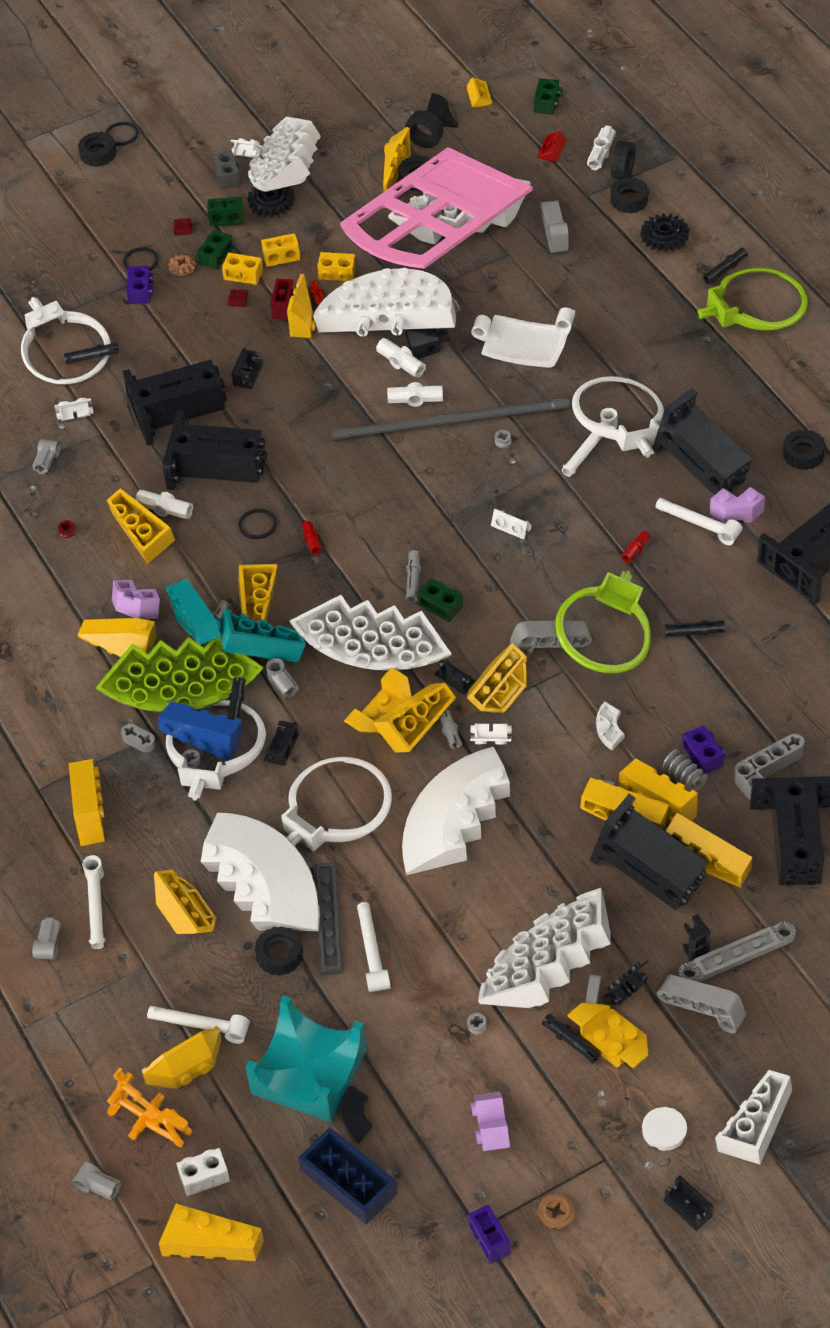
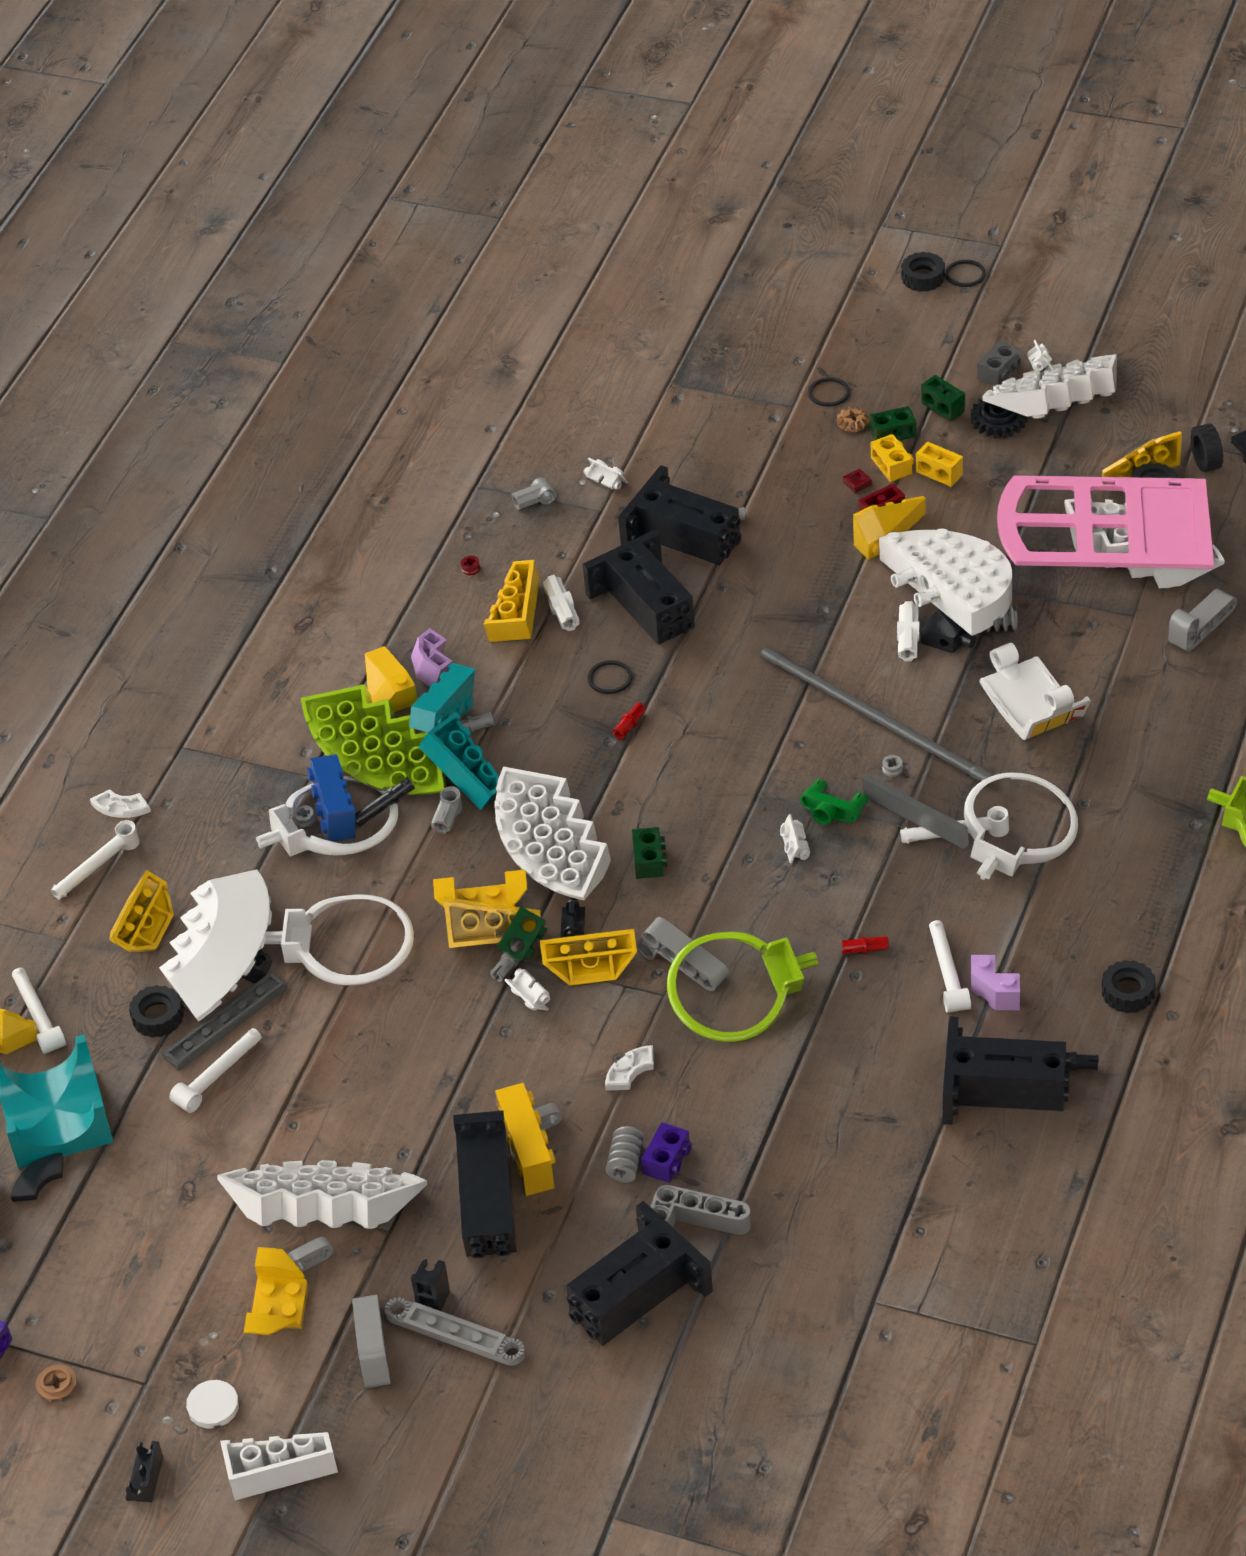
camera: 50 degrees right, 5 degrees down
(44, 314) = (680, 377): white brick -> none
(46, 945) = (23, 863): light grey piece -> none
(54, 858) = (120, 806): none -> white tile
(87, 801) = (188, 780): yellow wedge -> none
(98, 351) = (684, 440): black pin -> none
(139, 284) = (792, 409): dark purple brick -> none
(139, 736) = (289, 768): light grey beam -> none
(182, 226) = (899, 388): dark red tile -> none
(246, 369) = (775, 543): black hinge -> none
(256, 589) = (518, 729): yellow wedge -> none
(282, 743) = (379, 863): black hinge -> none
(317, 293) = (923, 521): red axle -> none
(336, 266) = (967, 514): yellow brick -> none
(413, 570) = (664, 812): light grey pin -> none
(415, 394) = (874, 670): white piece -> none
(447, 703) = (516, 933): none -> dark green brick
(451, 811) = (422, 1021): white brick -> none
(482, 1026) = (204, 1202): light grey bush -> none
(491, 1121) = (114, 1266): lavender brick -> none
(503, 490) = (829, 808): none -> green connector
(562, 449) = (915, 811): none -> dark grey tile
(564, 1033) = (248, 1272): black pin -> none
(627, 984) = (332, 1268): black hinge -> none
(644, 780) = (577, 1154): yellow wedge -> none
(695, 628) = (816, 1057): black pin -> none
(701, 445) = (1024, 901): black brick -> none
(723, 859) = (544, 1230): yellow wedge -> none

